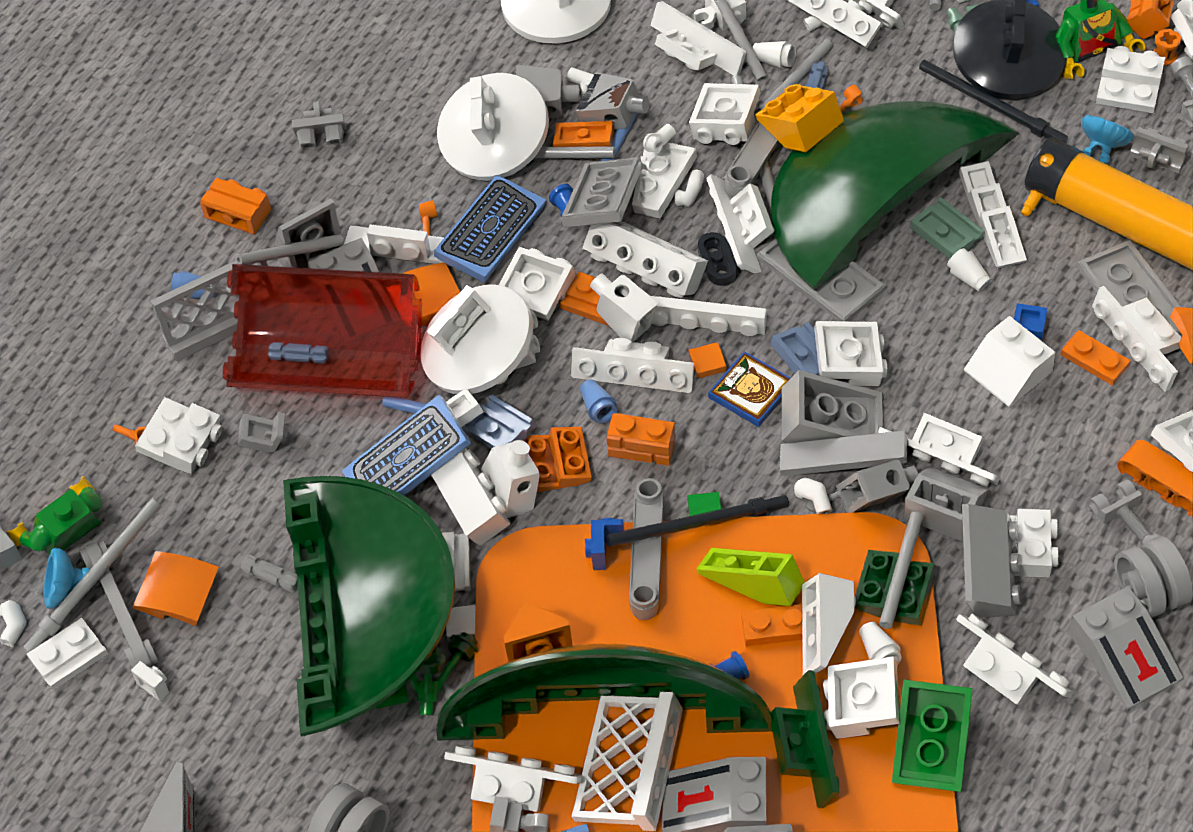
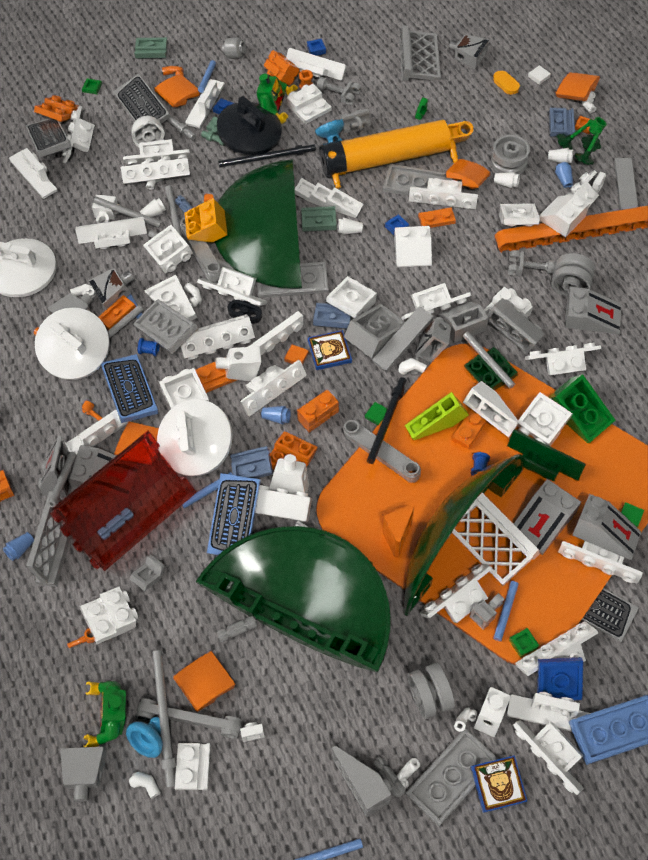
camera: 55 degrees left, 5 degrees up
(464, 407) = (230, 468): white plate -> none
(596, 545) = (362, 467): blue bracket -> none
(655, 141) = (156, 286): white arm -> none
(878, 643) = (518, 397): white cone -> none

